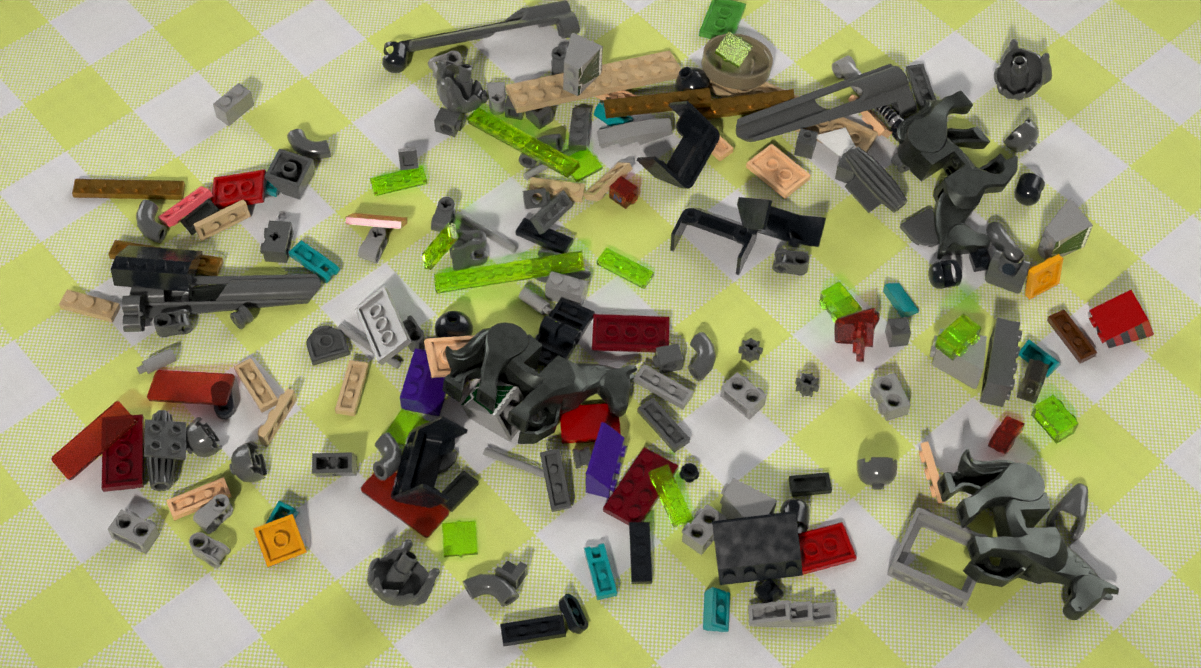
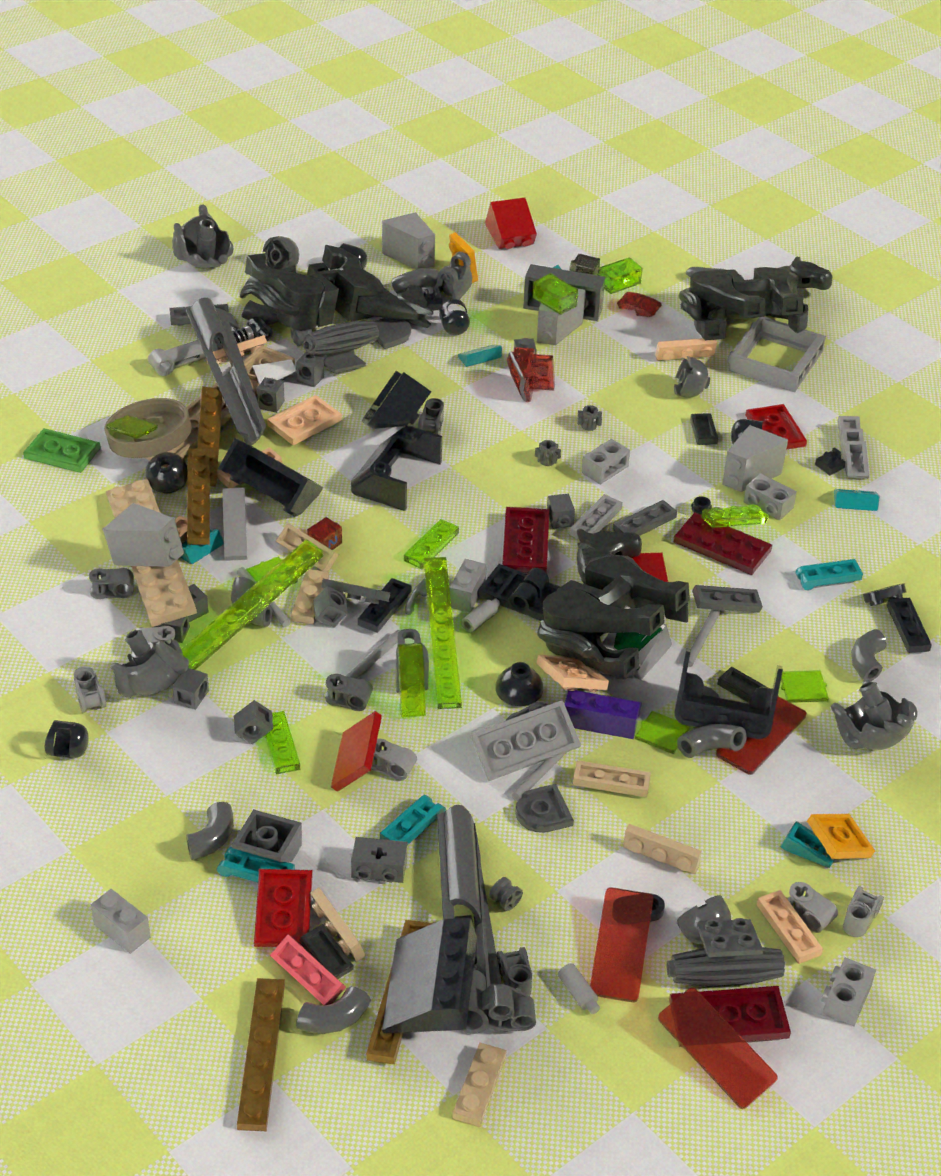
camera: 90 degrees left, 15 degrees down
(247, 463) = (738, 870): dark grey cylinder -> none
(256, 385) = (612, 874): tan plate -> none
(334, 464) = (730, 785): dark grey brick -> none
(513, 573) = (844, 638): dark grey panel -> none
(544, 15) = (28, 590): dark grey panel -> none
(579, 129) = (218, 570): dark grey plate -> none
(581, 457) = (694, 577): dark grey wheel -> none
(605, 462) = (701, 562): dark purple slope -> none
(640, 553) = (803, 543): black plate -> none
(705, 356) = (557, 484): dark grey cylinder -> none
(757, 548) = (805, 448): black slope -> none
(838, 301) = (489, 389): clear neon green brick -> none
(893, 395) = (601, 366): light grey brick -> none
(1072, 336) = (525, 257): reddish brown plate -> none

